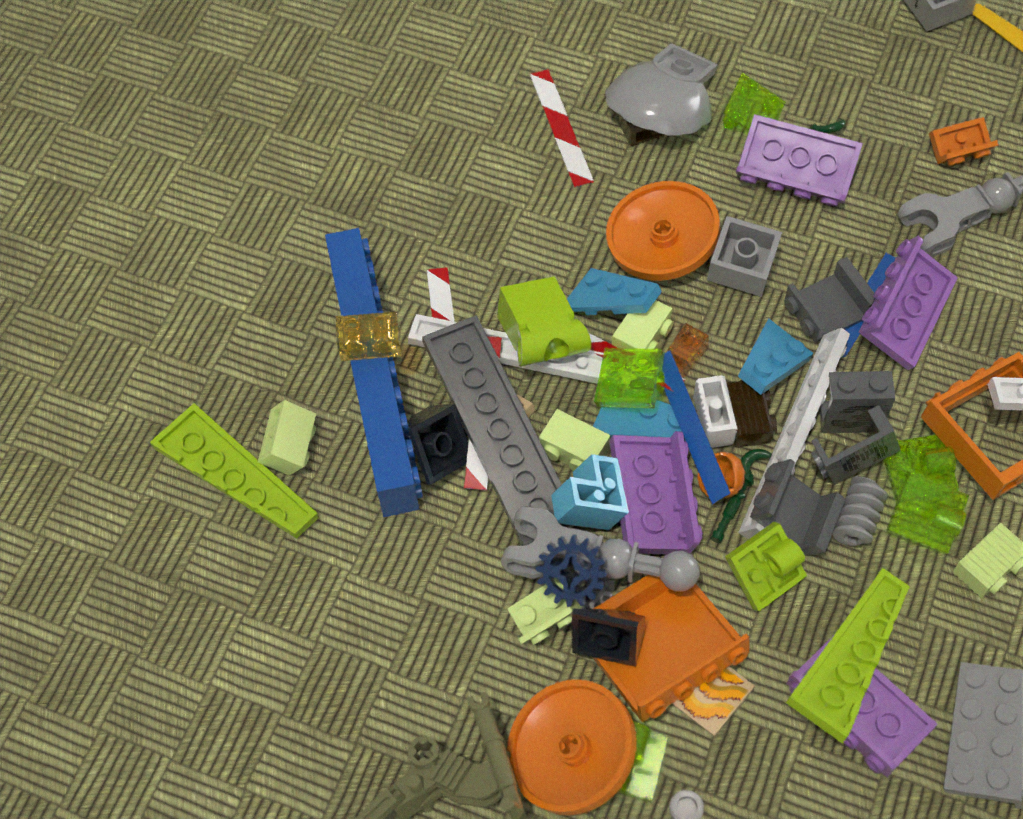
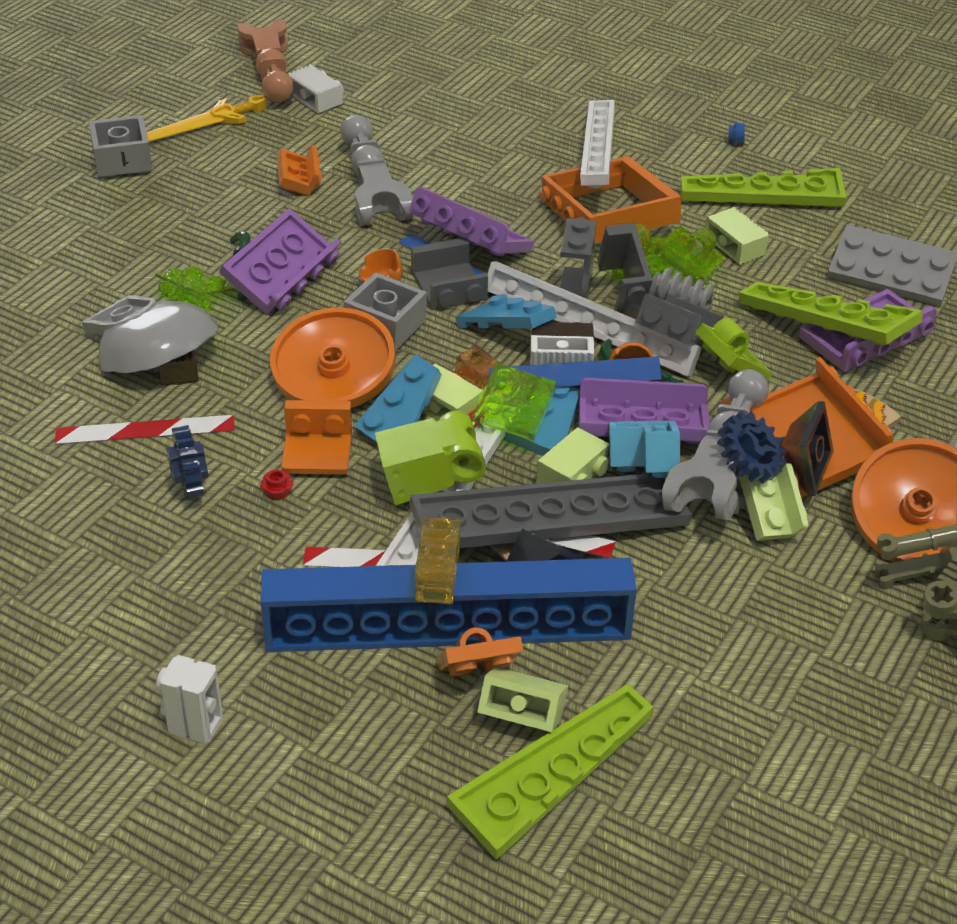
camera: 85 degrees left, 20 degrees down
(253, 223) = (190, 698): none -> white brick
(324, 398) = (465, 658): none -> orange plate
(498, 157) = (187, 462): none -> dark blue gear
(508, 235) = (276, 484): none -> red plate
(559, 245) = (317, 437): none -> orange bracket
(813, 244) = (383, 262): none -> orange hair

